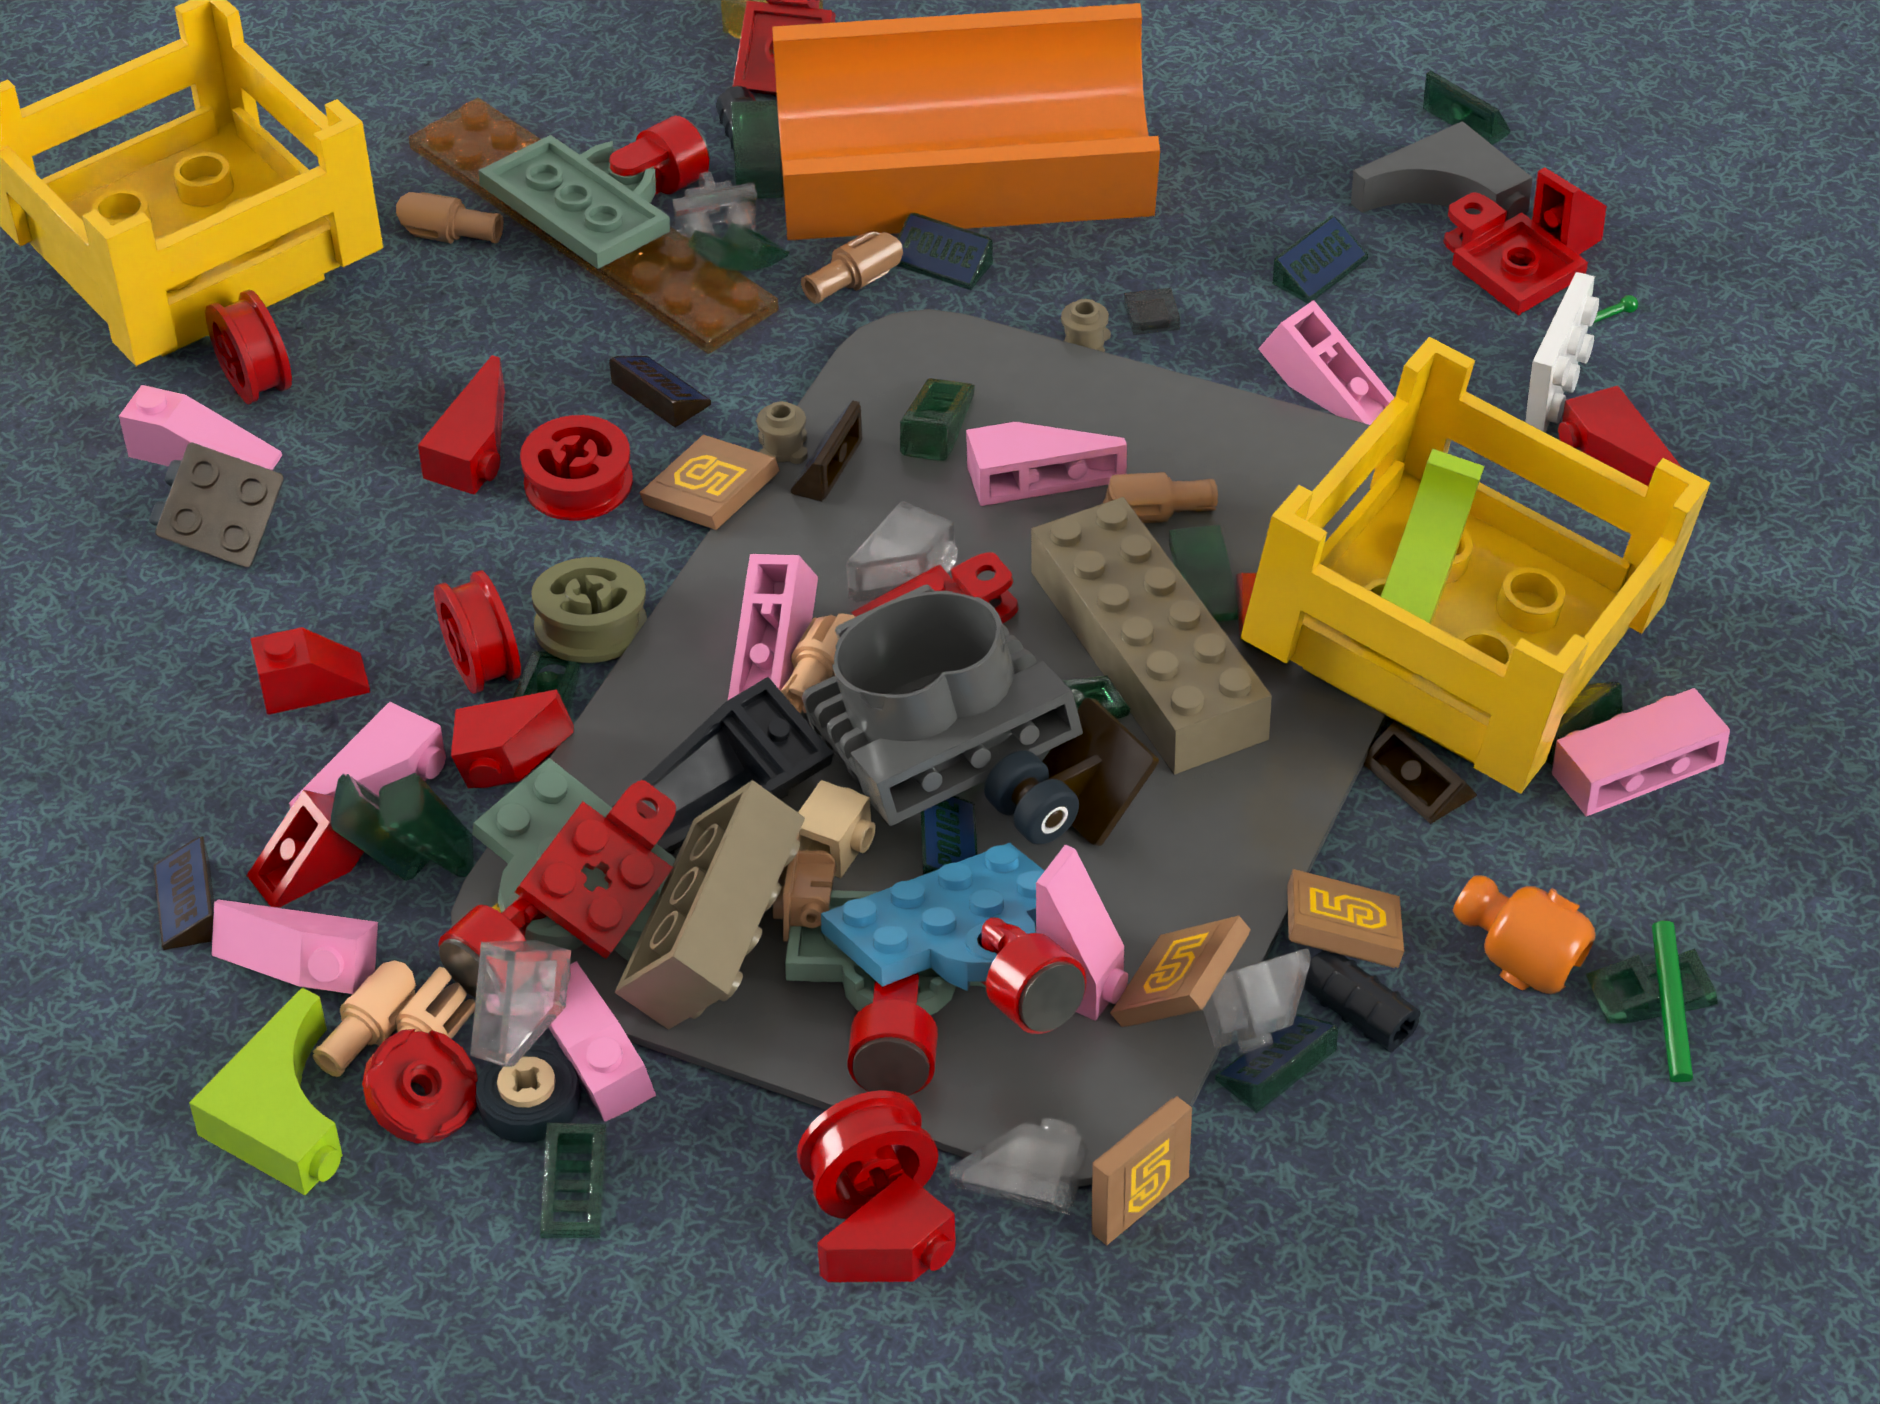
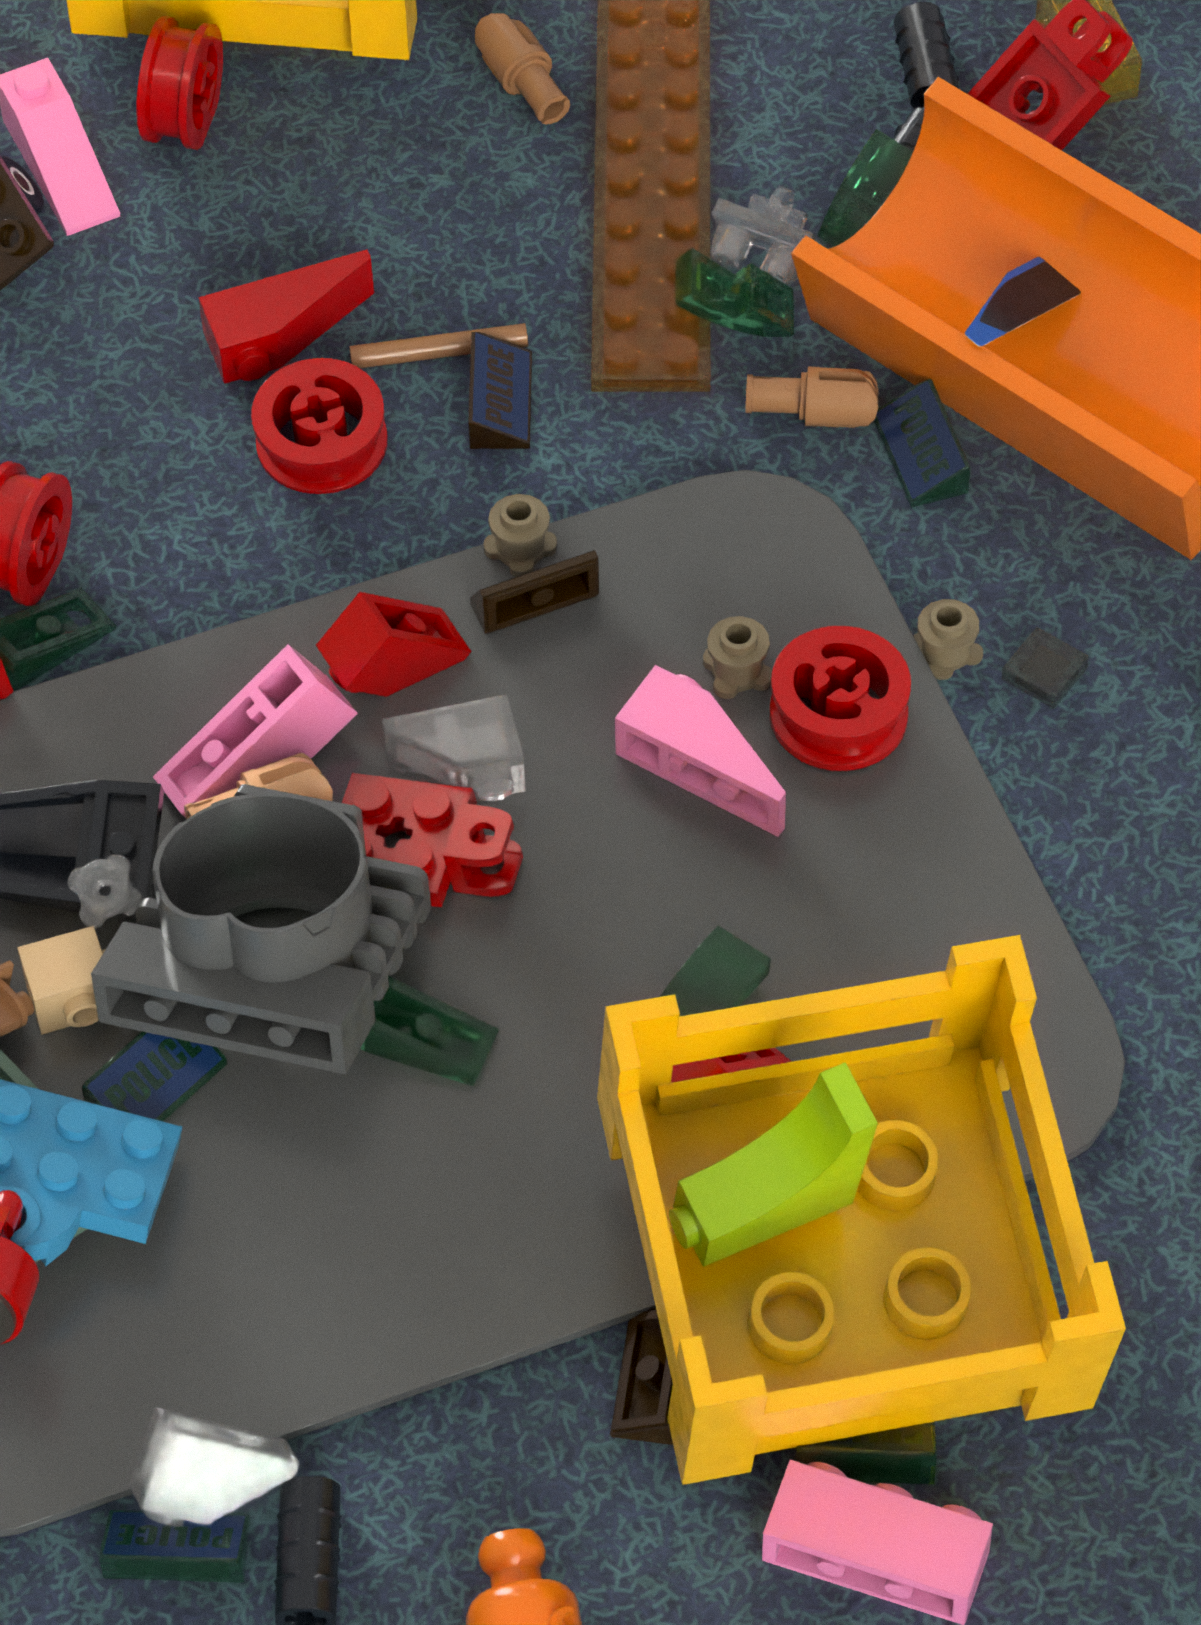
camera: 45 degrees right, 10 degrees up
(584, 389) = (430, 346): none -> medium nougat bar
(588, 609) = (127, 568): olive wheel -> none
(604, 196) = (652, 134): sand green plate -> none
(686, 72) = (923, 49): none -> black axle
(709, 482) = (412, 533): medium nougat tile -> none
(787, 530) = (389, 644): none -> red slope
(807, 742) = (89, 880): none -> clear plate
(935, 419) = (648, 643): clear green slope -> none
(938, 123) = (1019, 299): none -> black sticker
(991, 402) = (737, 656): none -> dark tan brick
(1076, 784) = (323, 1127): dark brown plate -> none
(1078, 922) = (84, 1272): bright pink slope -> none
(1104, 377) = (844, 723): none -> red wheel
(1150, 635) = (531, 1083): dark tan brick -> none
(1157, 497) = (760, 878): medium nougat arm -> none
(1181, 972) = (155, 1386): medium nougat tile -> none
(1324, 366) = (1116, 881): bright pink slope -> none
(1345, 918) = (380, 1463): medium nougat tile -> none

